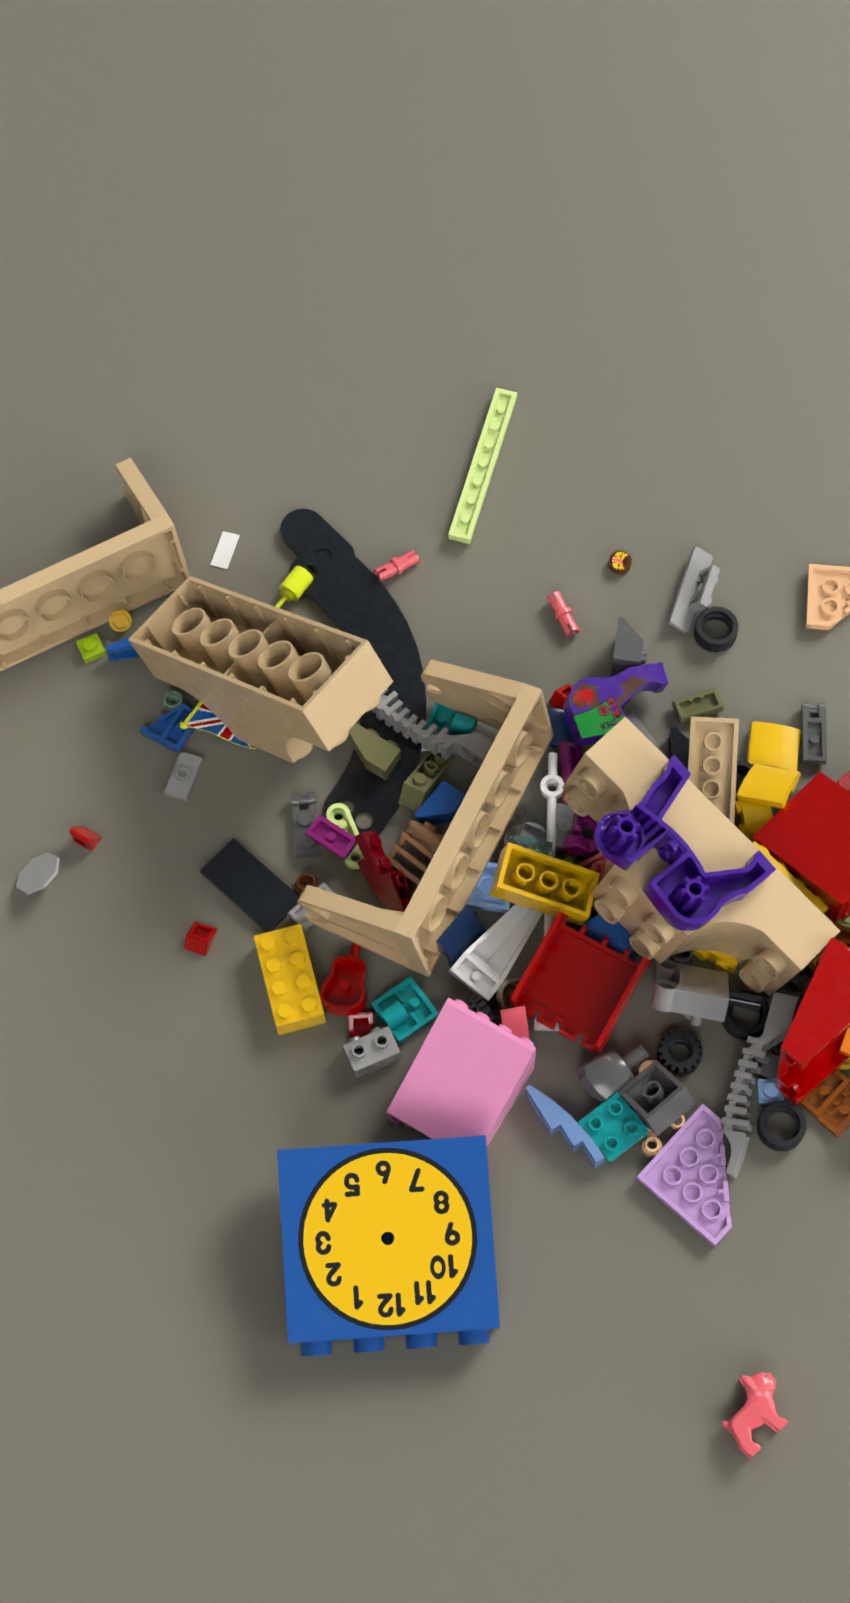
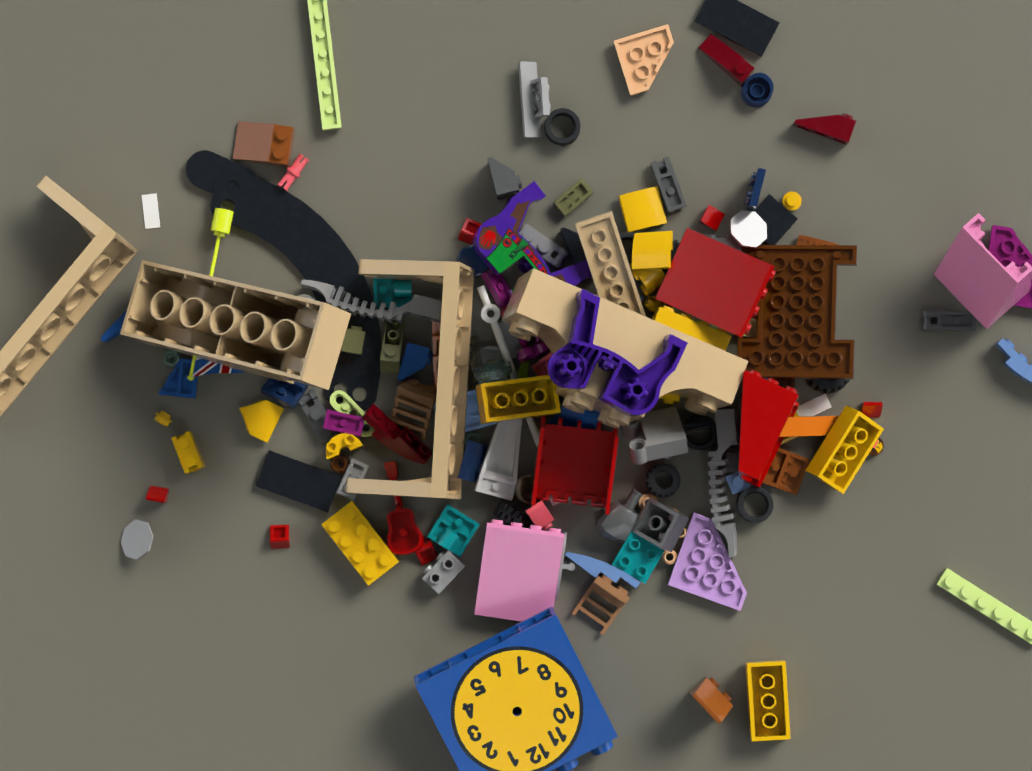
camera: 20 degrees left, 20 degrees up
(91, 648) = (86, 339): lime plate -> none
(120, 620) = (98, 308): yellow plate -> none
(132, 759) = (163, 418): none -> yellow plate
(142, 803) = (188, 452): none -> yellow brick
(183, 776) = (208, 415): light grey plate -> none
(241, 801) = (261, 418): none -> yellow slope
(287, 779) = (284, 392): none -> dark blue slope
(318, 860) = (341, 441): none -> yellow cylinder
(380, 527) = (264, 143): none -> dark orange slope
(517, 1098) = (563, 565): none -> light grey shield
(561, 1157) = (615, 596): none -> medium nougat plate
(563, 614) = (440, 161): coral pin -> none
(620, 562) = (465, 96): tile -> none
(635, 1337) = (711, 699): none -> dark orange slope
(708, 1370) = (767, 700): none -> yellow brick
(757, 1411) = (809, 714): coral animal -> none

